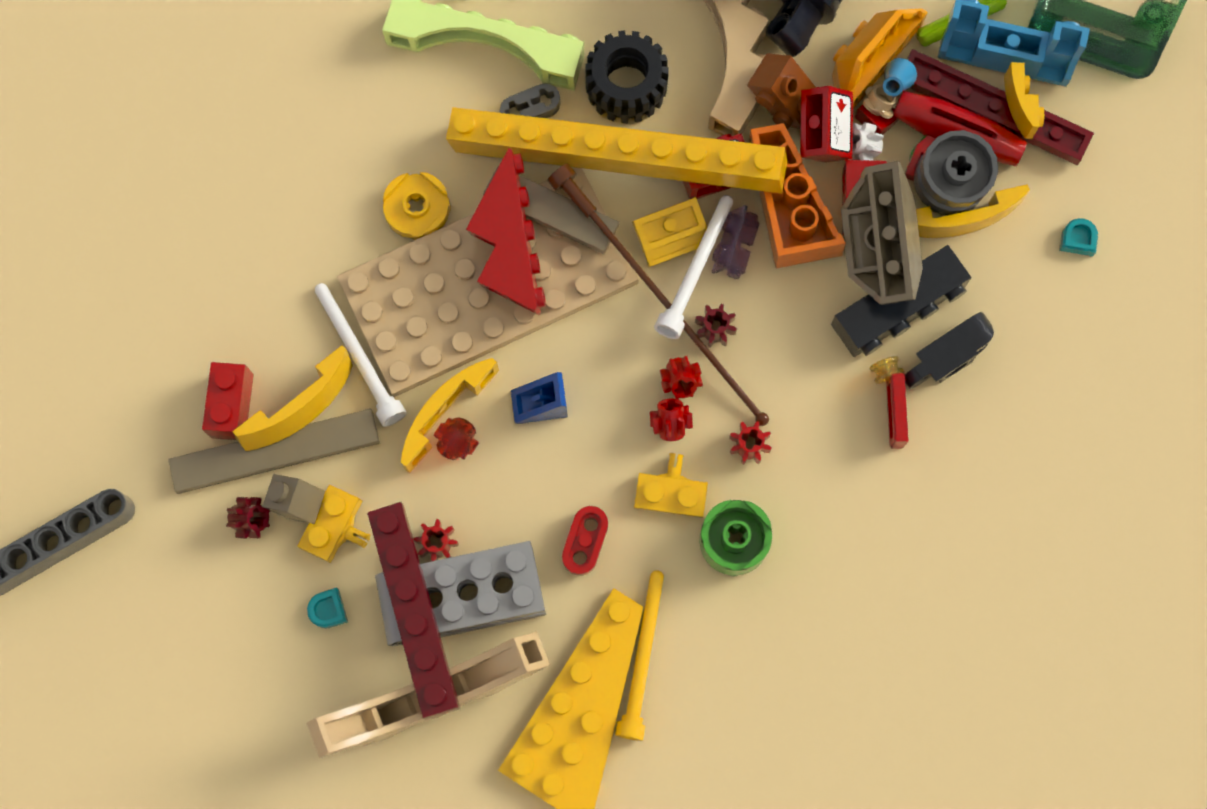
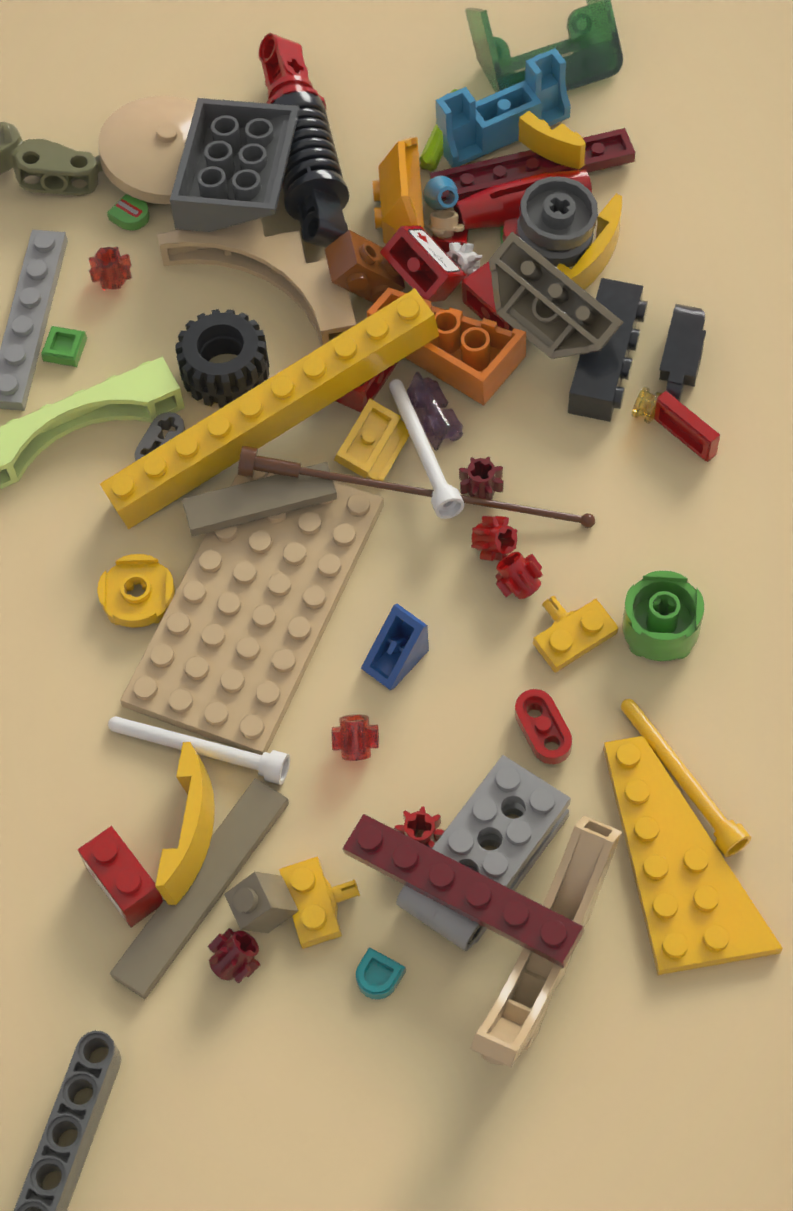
camera: 40 degrees left, 15 degrees down
(474, 378) = (320, 685): yellow slope -> none
(503, 224) = (241, 536): red slope -> none
(741, 439) = (598, 541): red gear -> none
(1079, 237) = (689, 207): teal tile -> none

